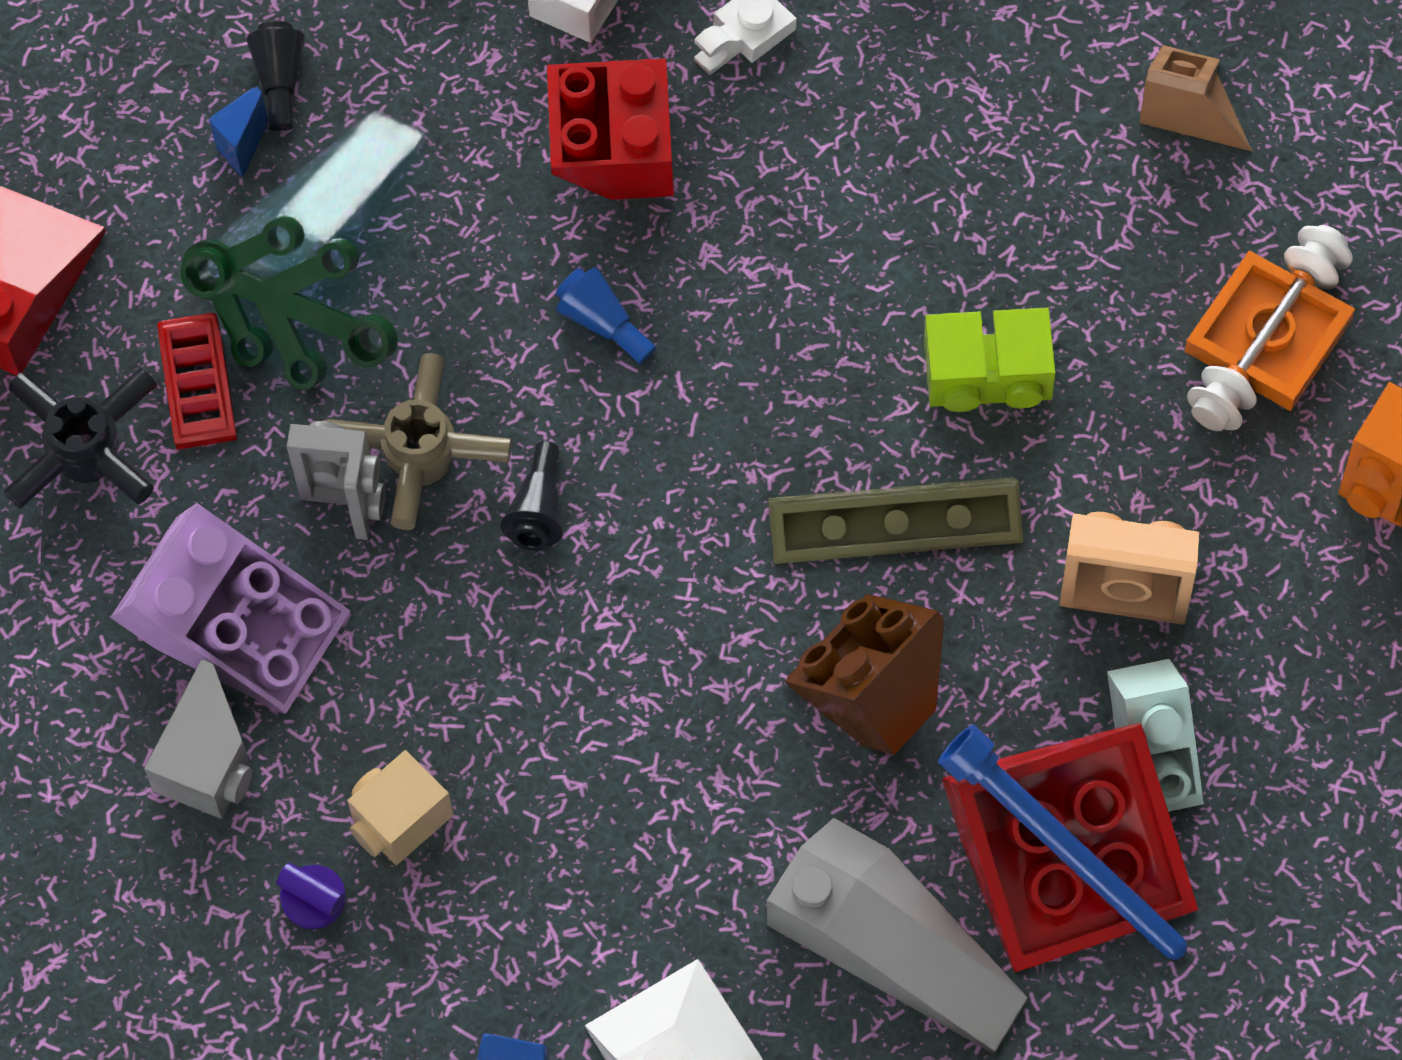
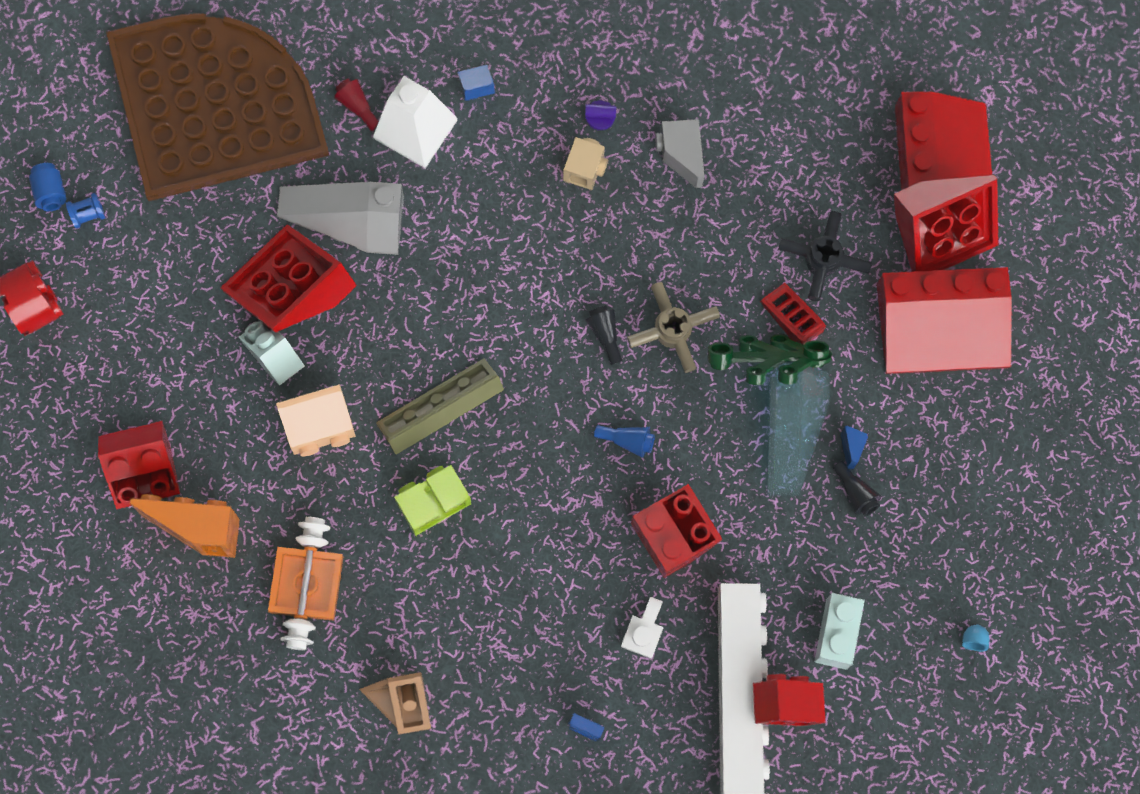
camera: 145 degrees right, 10 degrees up
(232, 605) = (711, 214): lavender slope -> none
(339, 469) = (696, 291): light grey bracket -> none
(875, 671) = (411, 318): reddish brown slope -> none
(973, 759) = (338, 269): blue piece -> none

